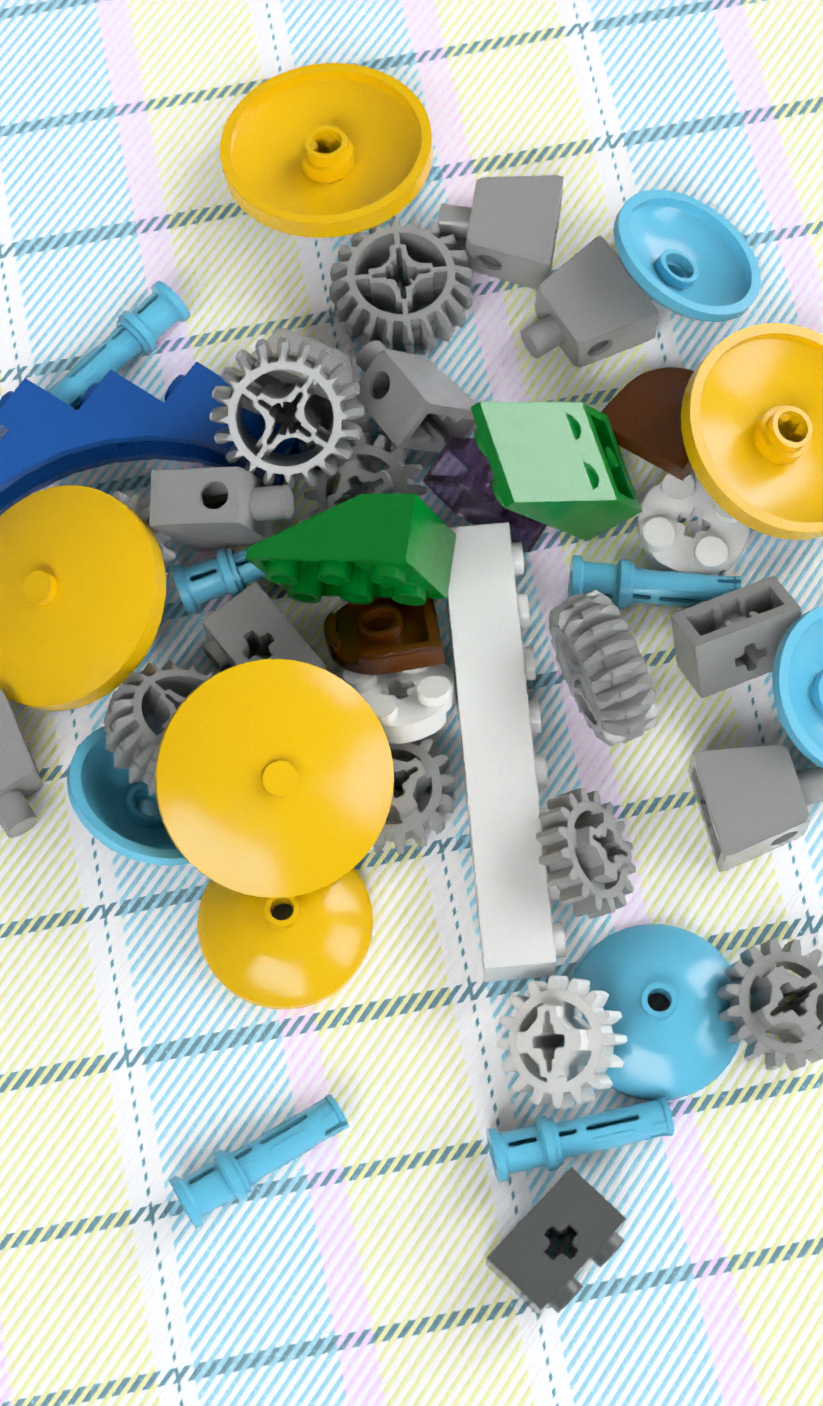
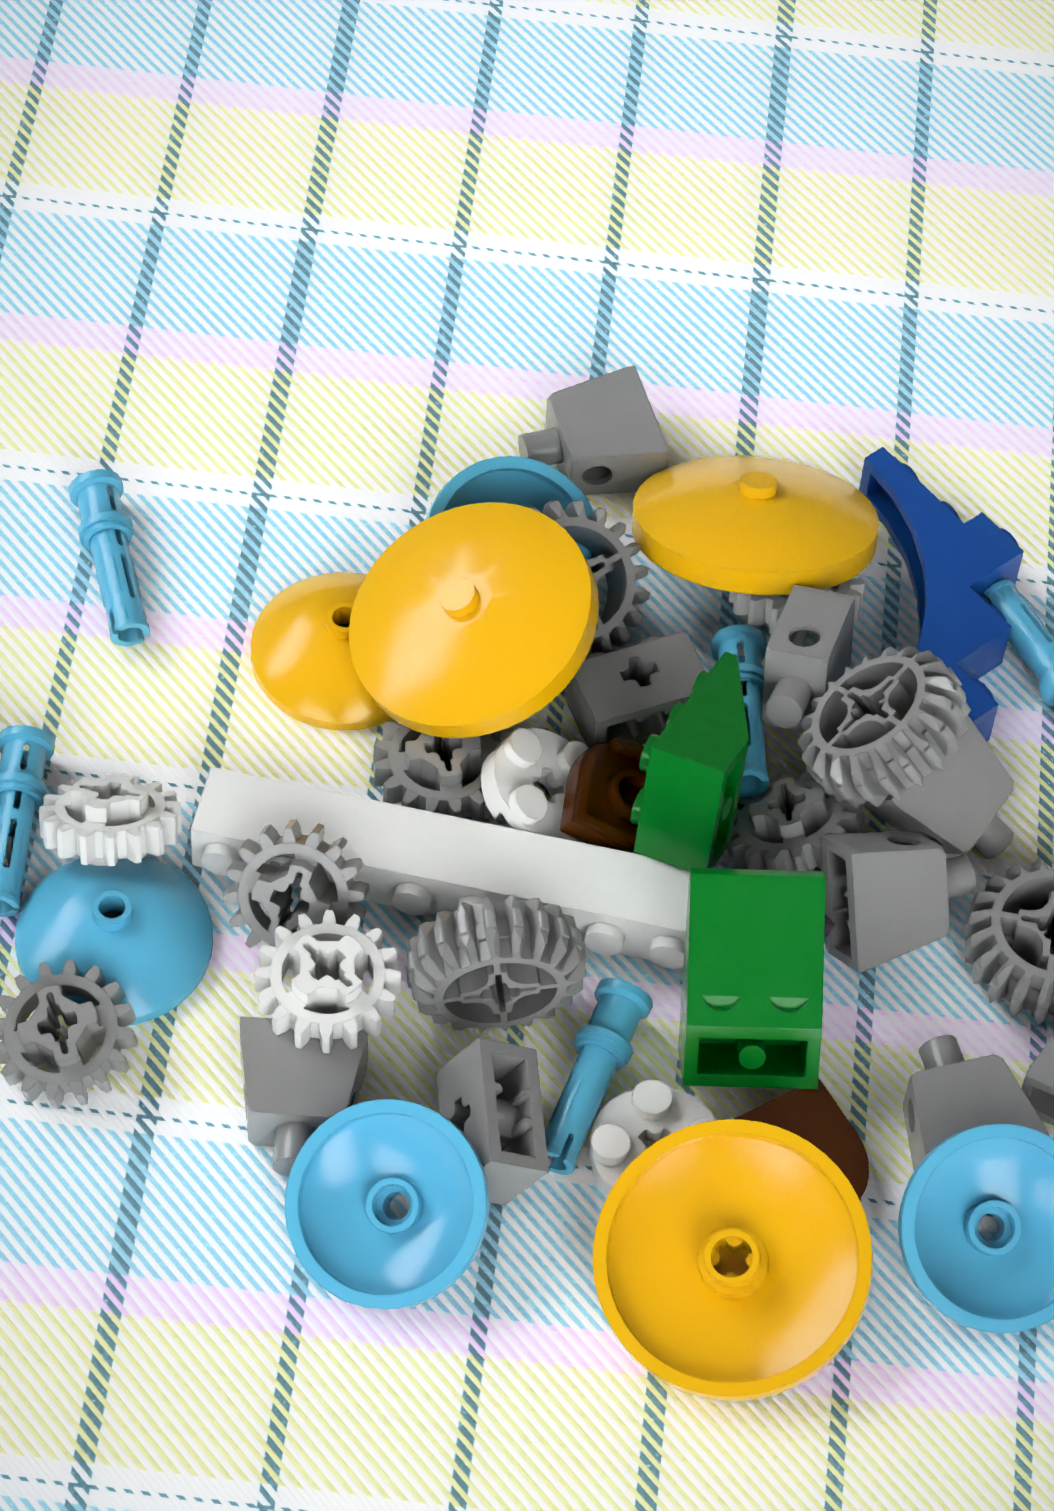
camera: 100 degrees right, 15 degrees down
(693, 802) = (327, 981): none -> white gear

